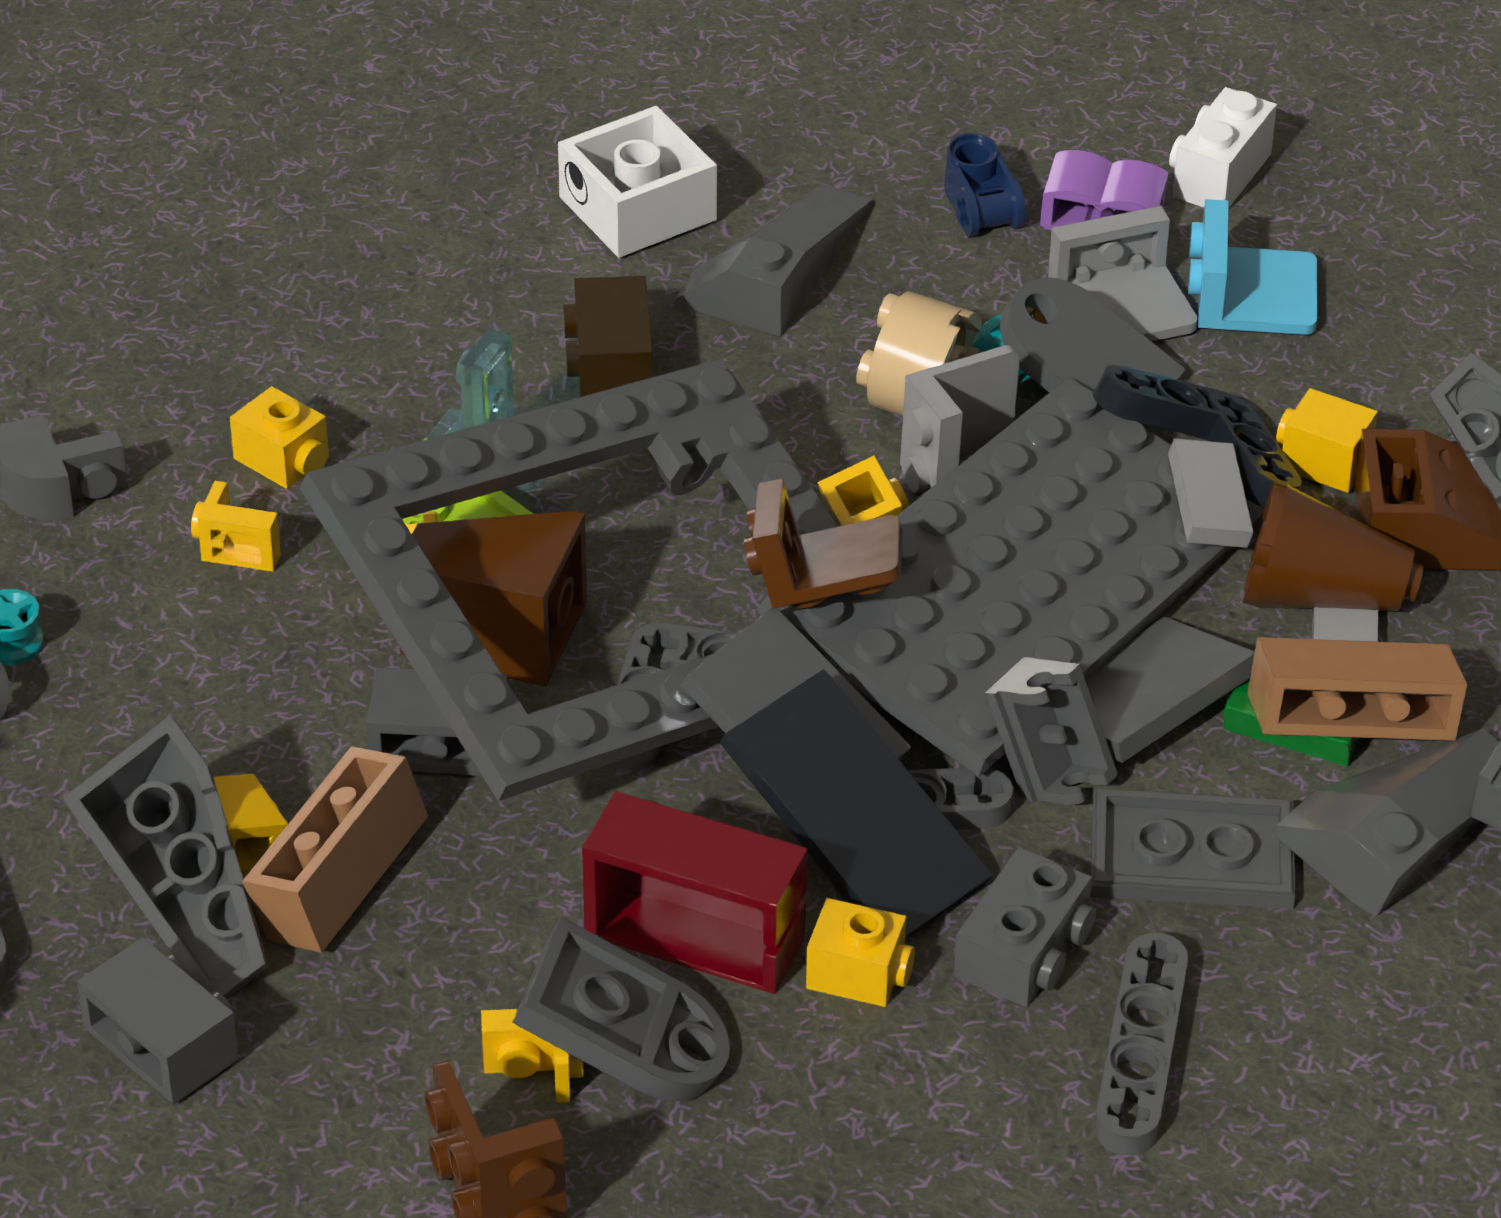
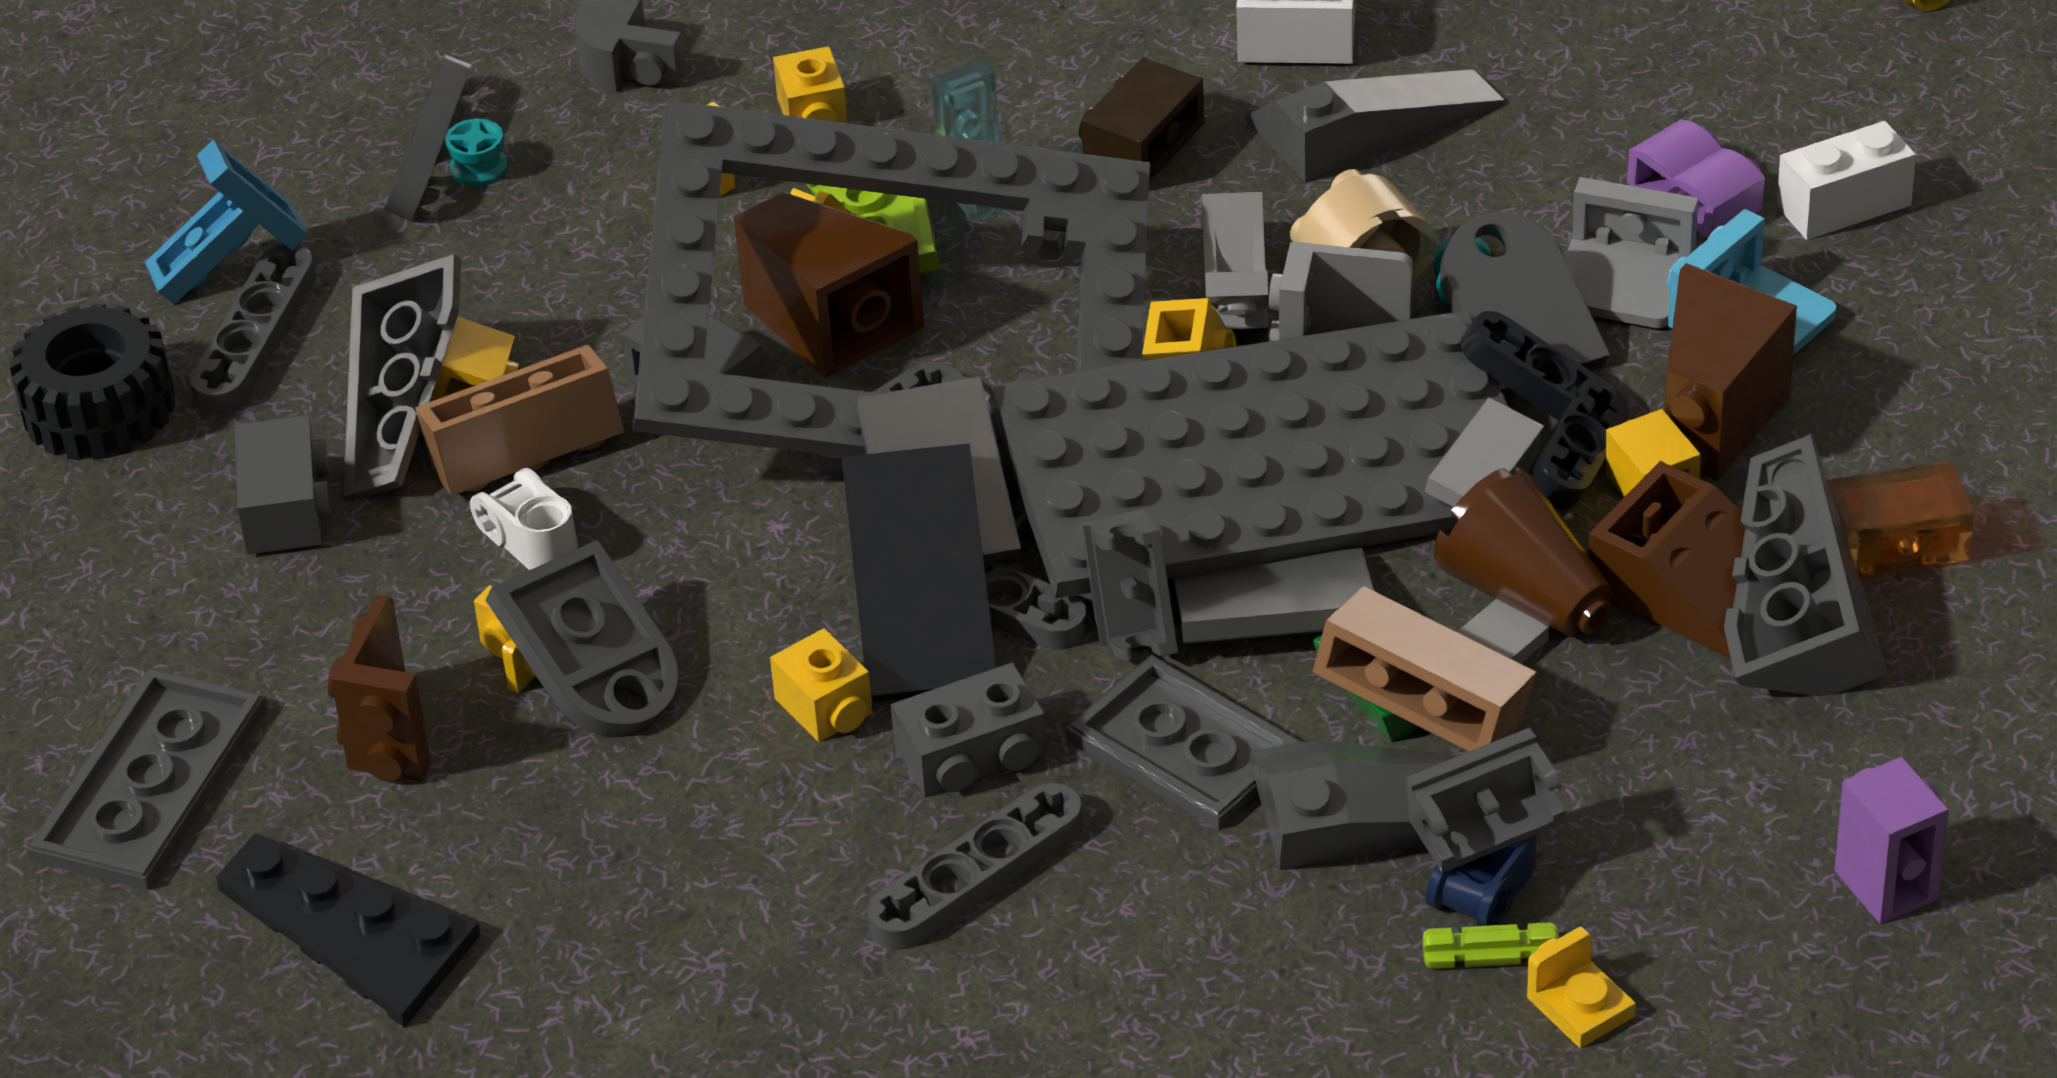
camera: 40 degrees right, 0 degrees up
(432, 936) = (526, 519): none -> white piece
(695, 891) = (728, 571): dark red piece -> none
(818, 426) = (1236, 258): none -> light grey arch
(820, 563) = (1027, 341): reddish brown bracket -> none
(981, 185) = (1594, 122): dark blue piece -> none
(1301, 327) = (1726, 364): none -> reddish brown slope

